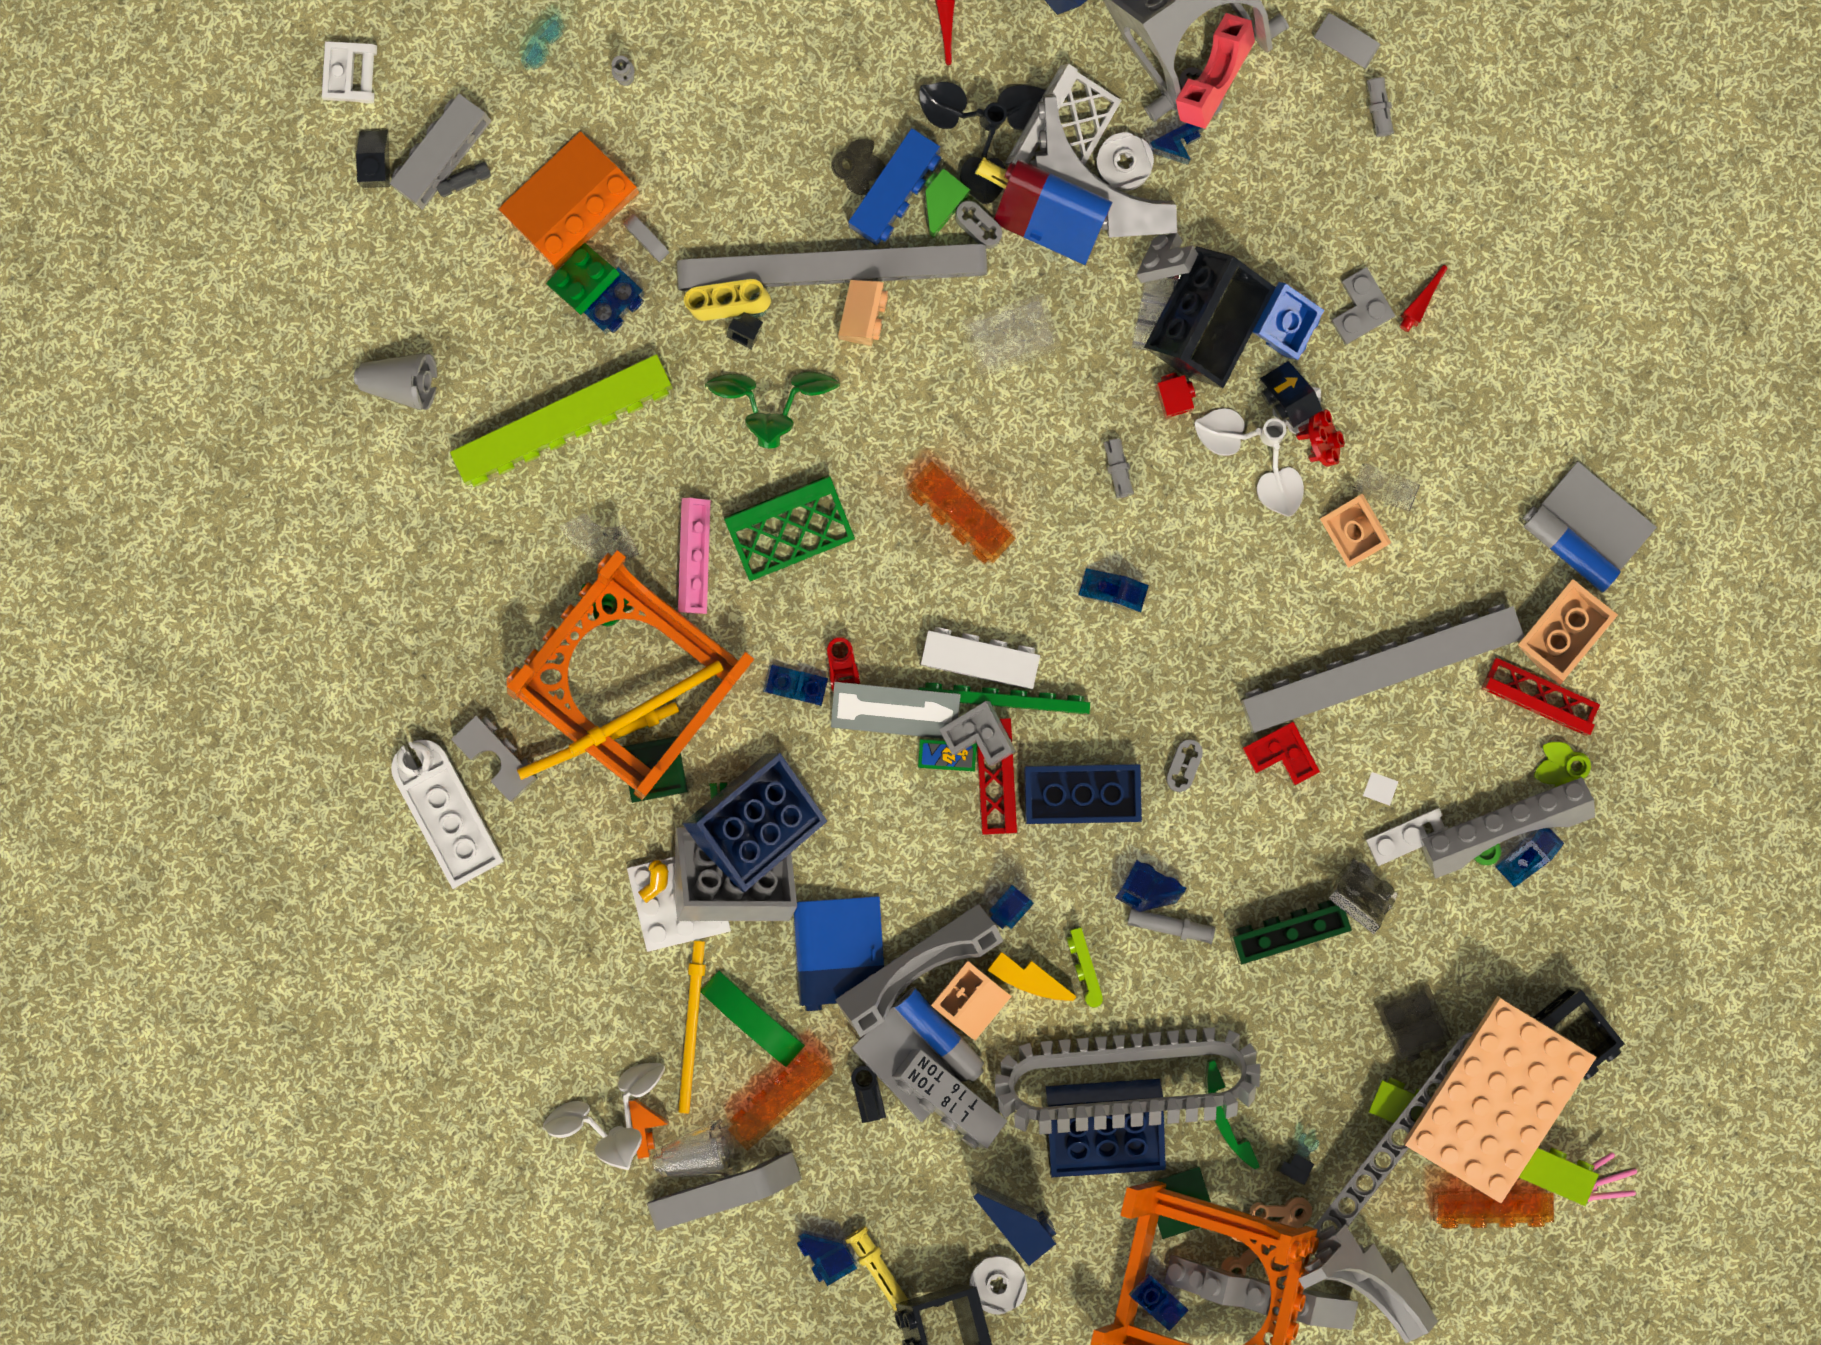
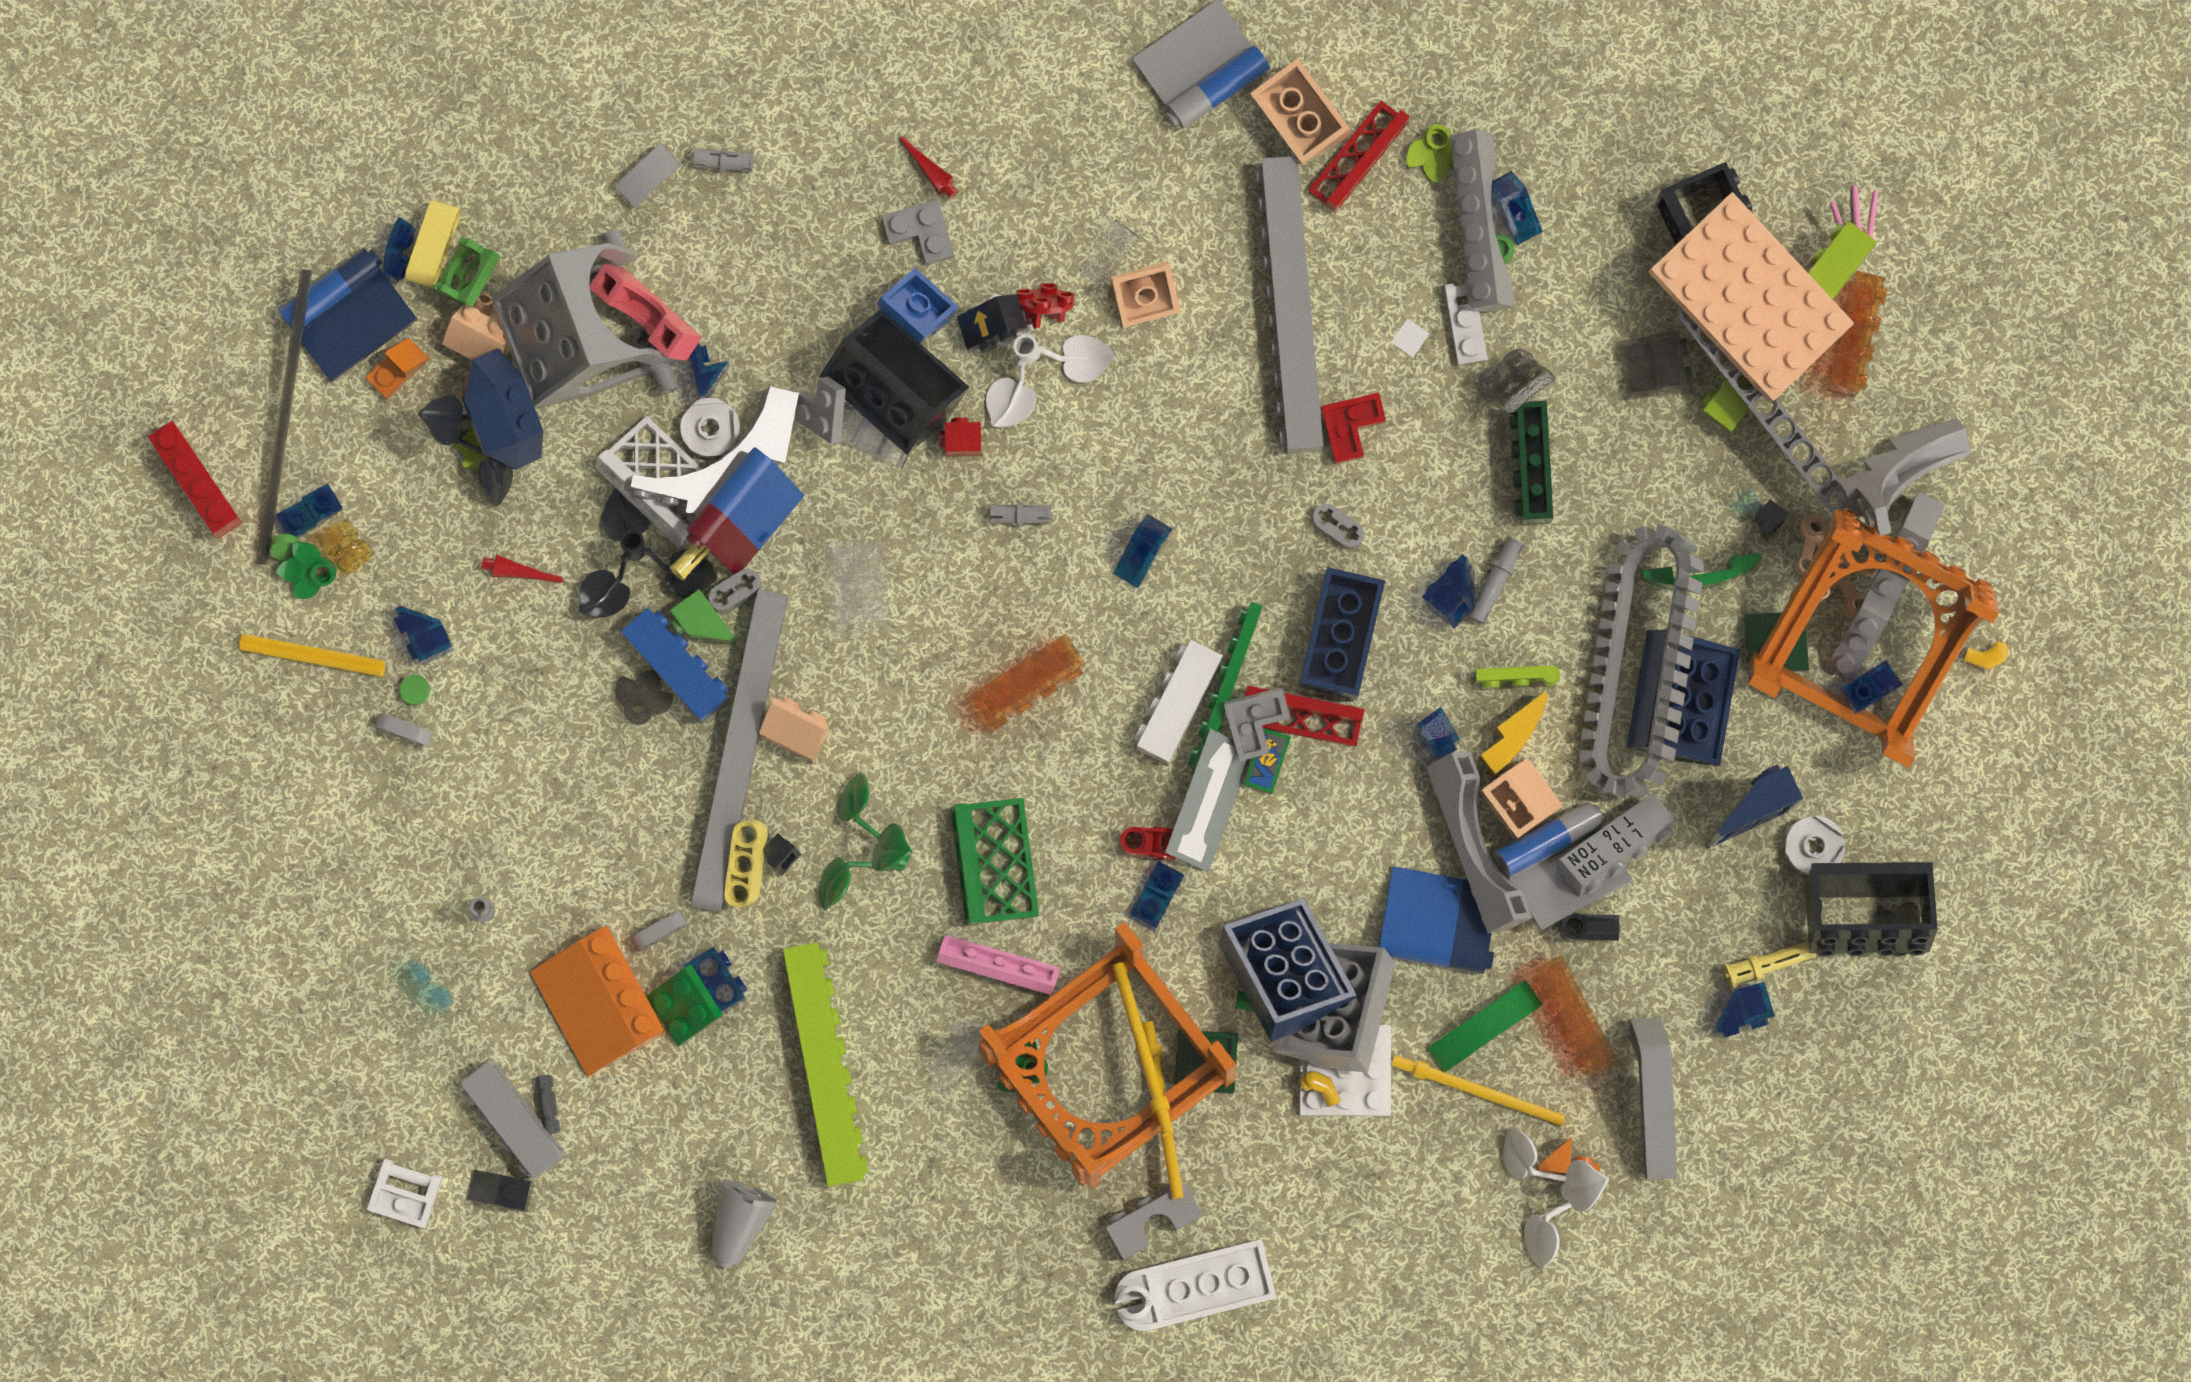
camera: 75 degrees left, 5 degrees down
(697, 1154) = (1609, 1115): clear cone -> none

